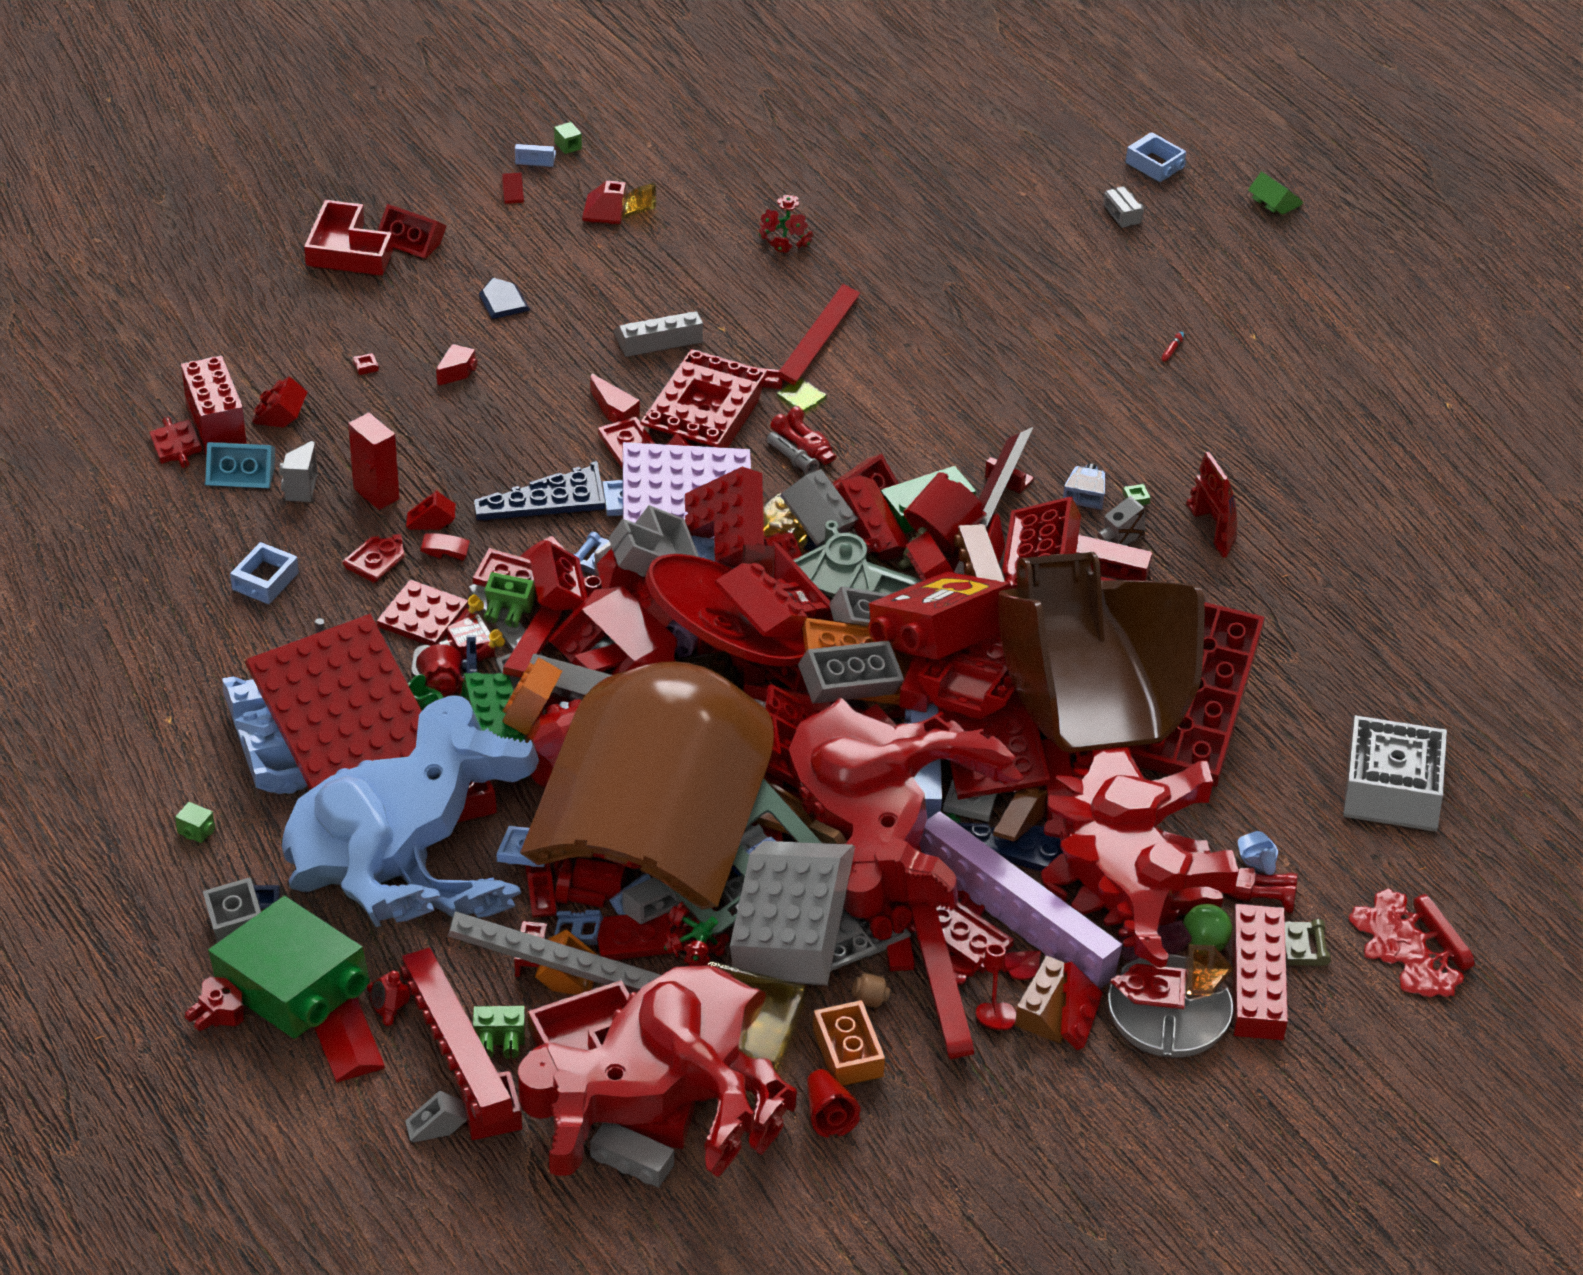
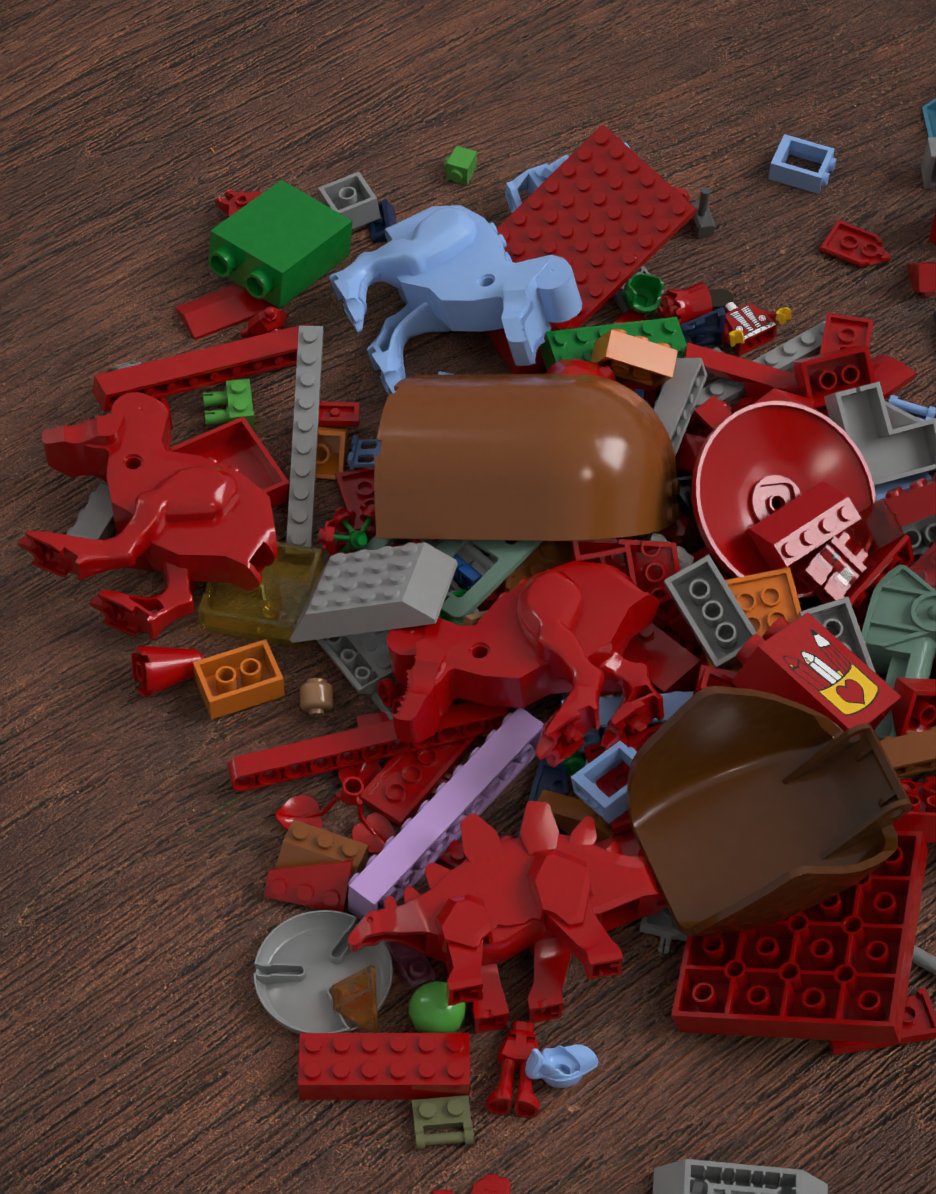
camera: 85 degrees right, 10 degrees up
(422, 613) = (783, 285): plate -> none
(437, 544) = (883, 294): slope -> none
(509, 593) = (804, 339): bright green brick -> none
(1032, 777) = (582, 781): none -> light blue window
(1153, 985) = (330, 953): red tile -> none

